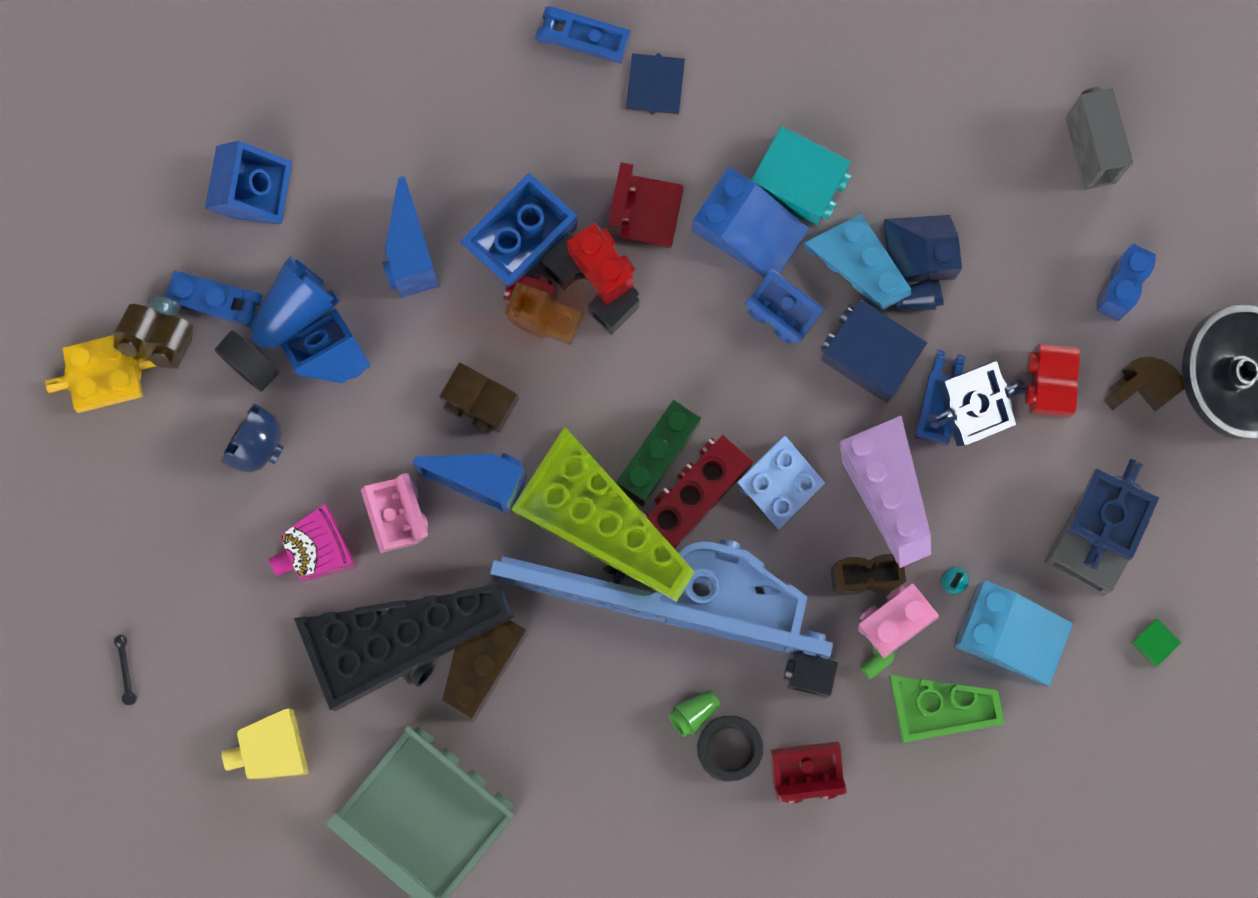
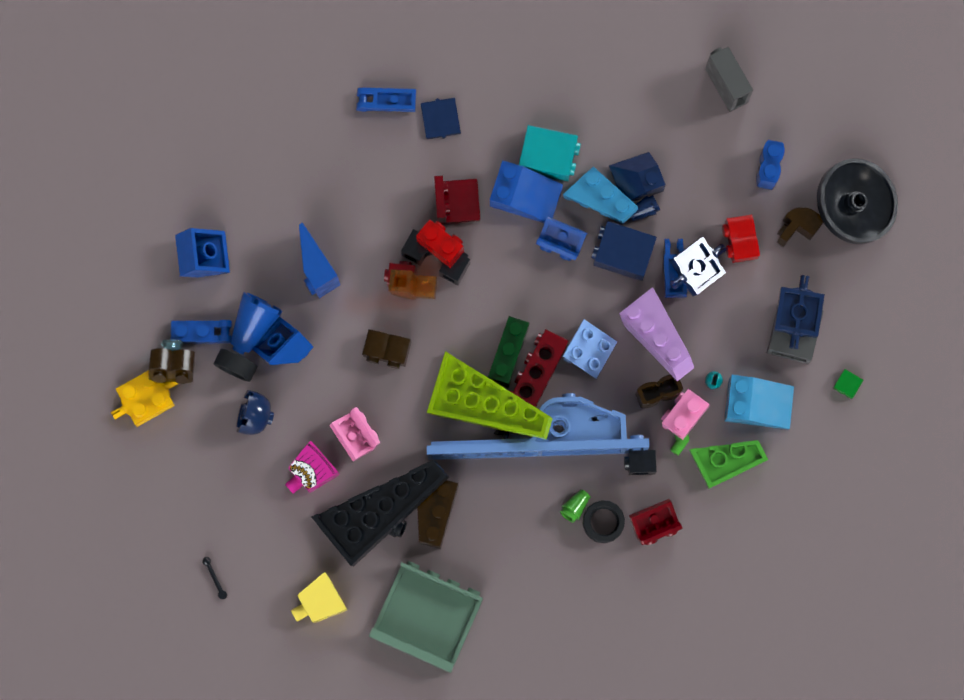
camera: 10 degrees left, 0 degrees up
(479, 476) = (402, 397): blue slope -> none
(520, 230) = (383, 236): blue slope -> none

